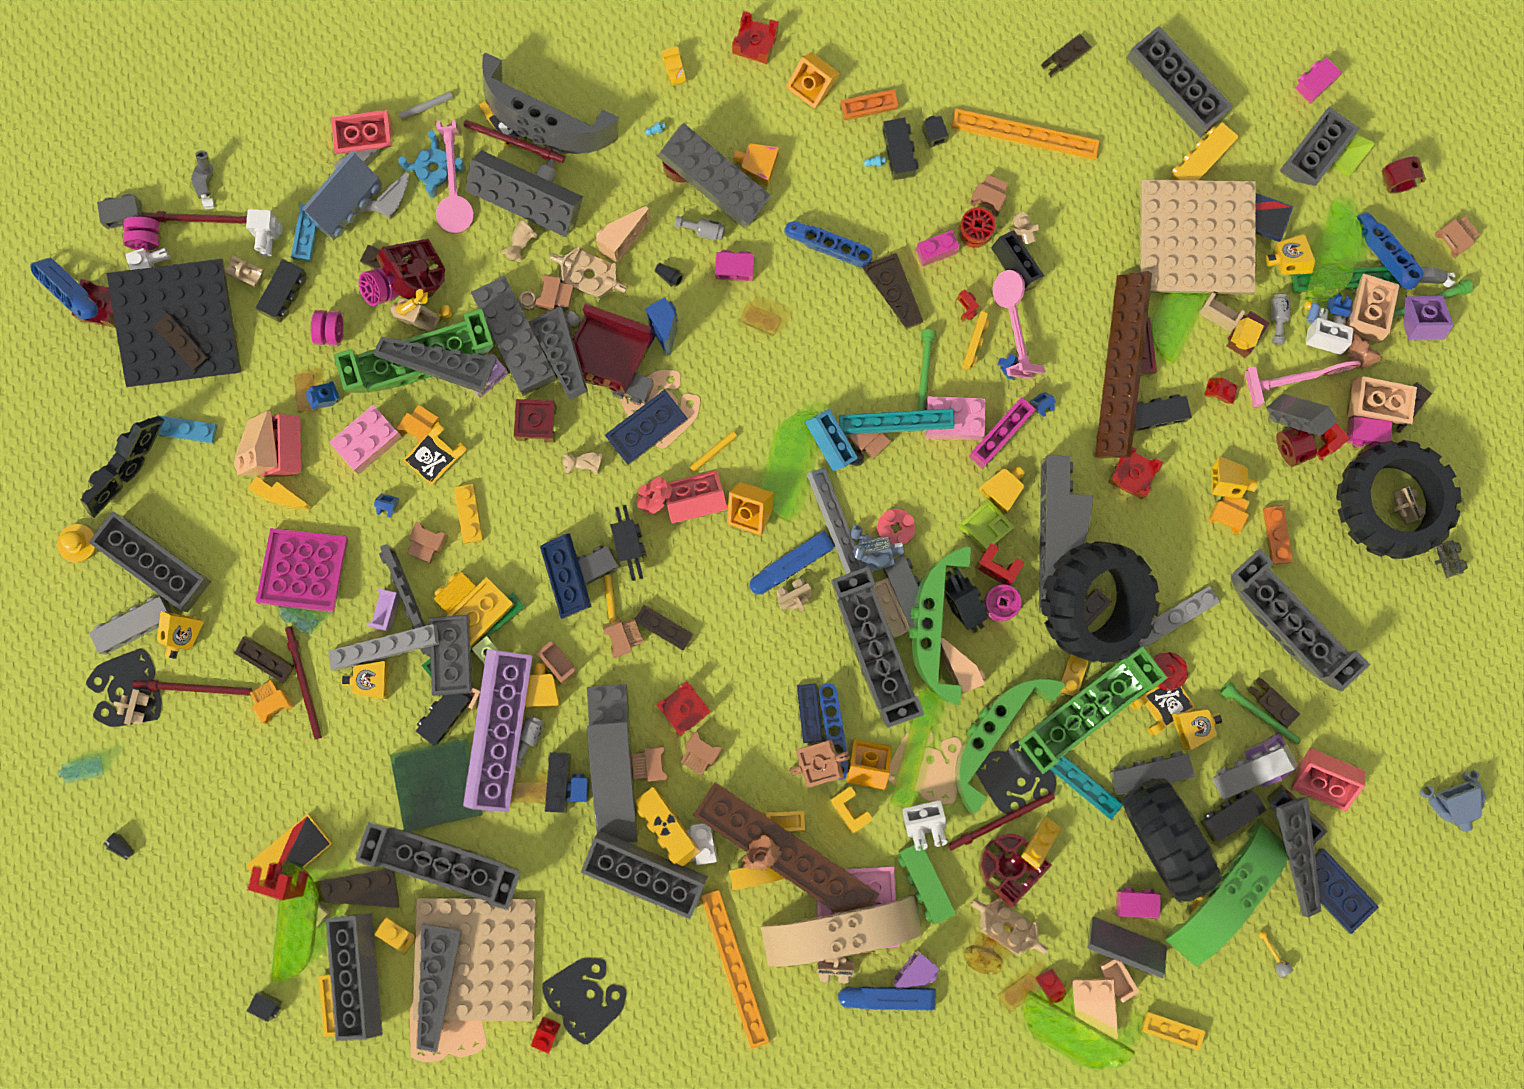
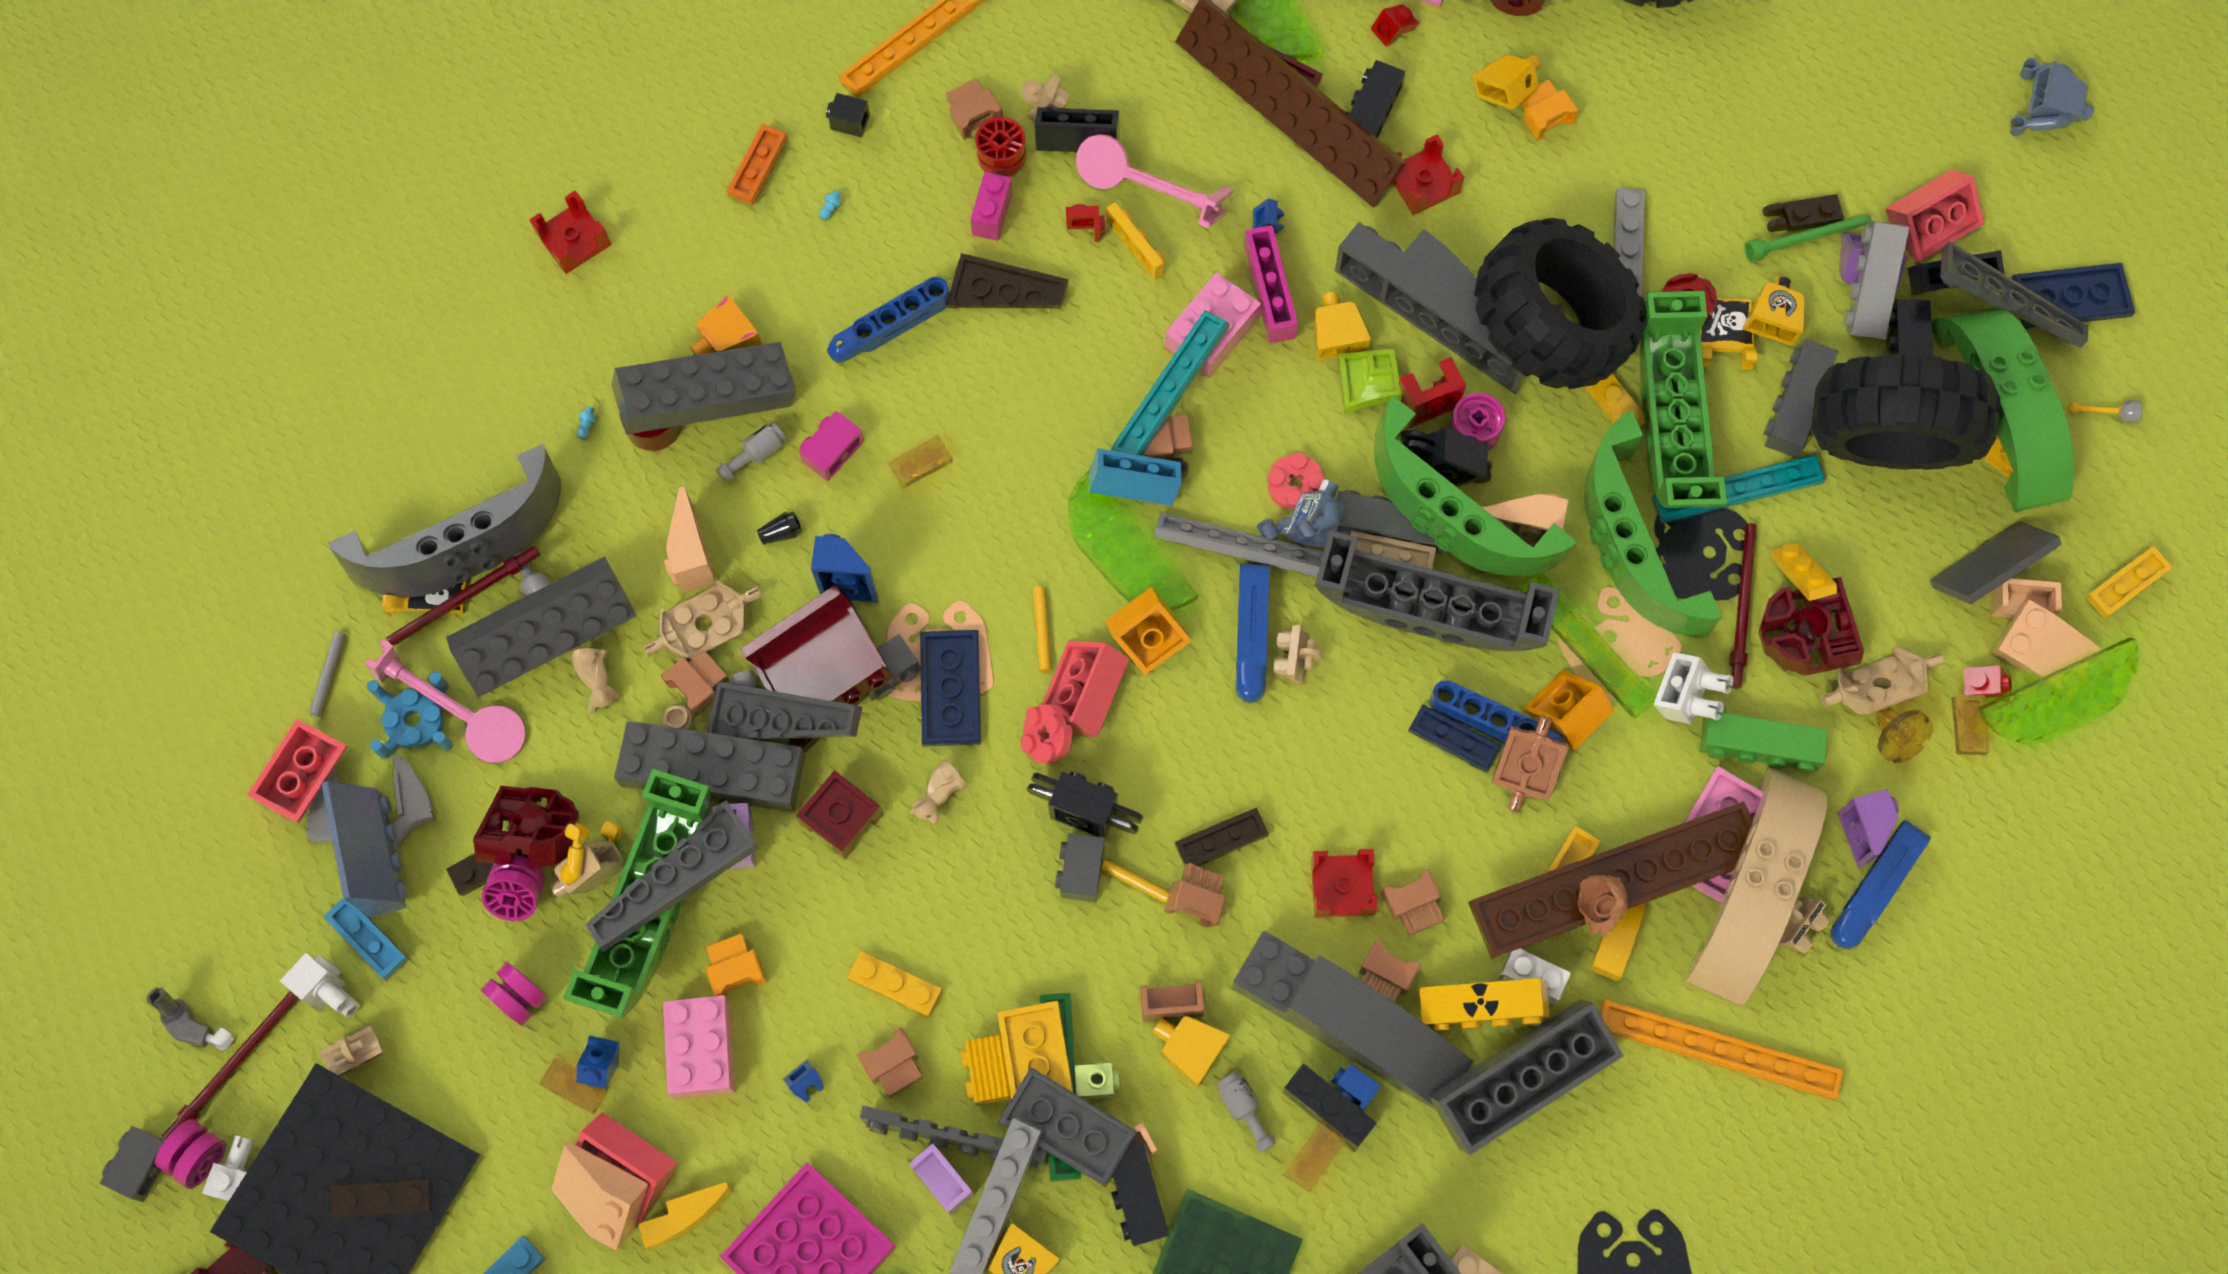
camera: 50 degrees left, 10 degrees down
(281, 291) = (417, 1021): black brick -> none
(433, 456) = (786, 974): flag -> none
(497, 731) = (1210, 1135): lavender brick -> none
(565, 576) = (1068, 913): dark blue tile -> none
(673, 66) = (527, 347): yellow leg -> none
(812, 79) = (675, 205): light orange slope -> none
(846, 812) = (1624, 776): yellow panel -> none
(899, 148) = (837, 167): black brick -> none
(928, 338) = (1090, 289): bright green piece -> none
(1006, 363) = (1190, 225): blue tile -> none
(1138, 904) = (1949, 517): dark pink brick -> none
(1277, 535) = (1608, 80): orange plate -> none
(1294, 624) = (1733, 127): dark grey slope -> none

